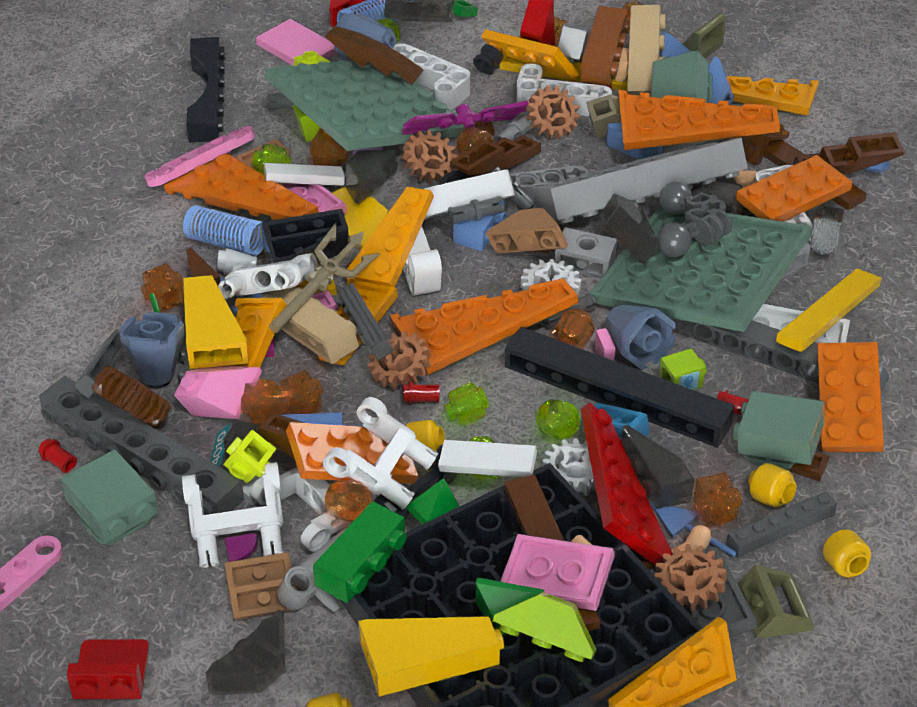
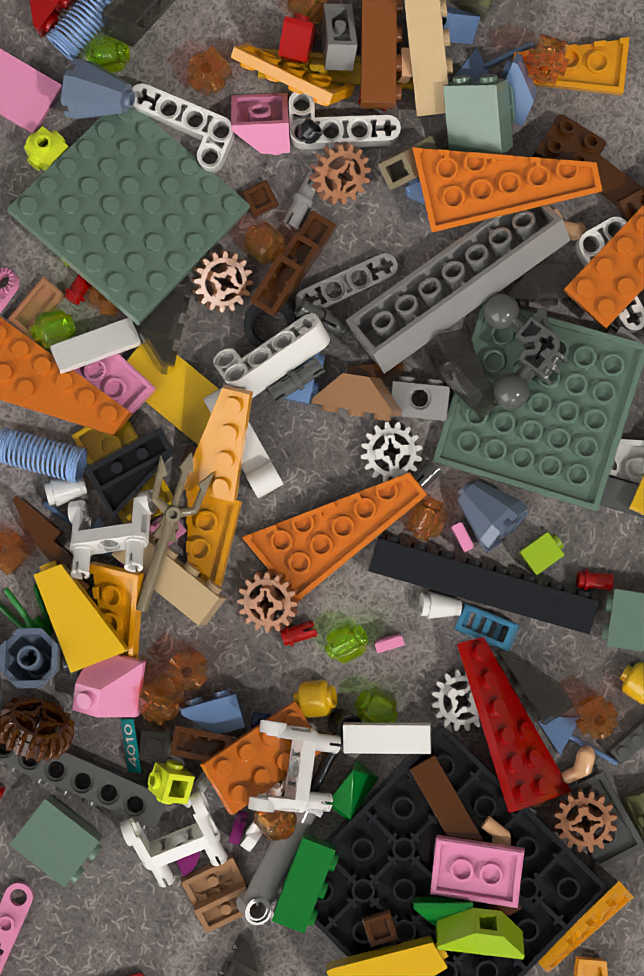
camera: 10 degrees left, 45 degrees up
(296, 531) = (238, 827): none -> magenta tile
(301, 150) = (77, 290): none -> red pin
(365, 49) = (116, 128): reddish brown slope -> none
(366, 323) = (224, 568): dark grey piece -> none
(431, 608) = (379, 928): none -> reddish brown tile
(460, 48) = (209, 62): none -> clear orange brick
(464, 116) = (248, 218): magenta piece -> none
(488, 59) = (244, 80): black wheel -> none
(497, 82) = (262, 121): none -> bright pink slope
(510, 412) = (389, 642): none -> bright pink tile
(533, 79) = (310, 131): none -> black hinge
(558, 419) = (435, 648): clear neon green head -> none
(569, 392) = (438, 605): none -> white cone
(745, 70) = (547, 59): none -> clear orange brick

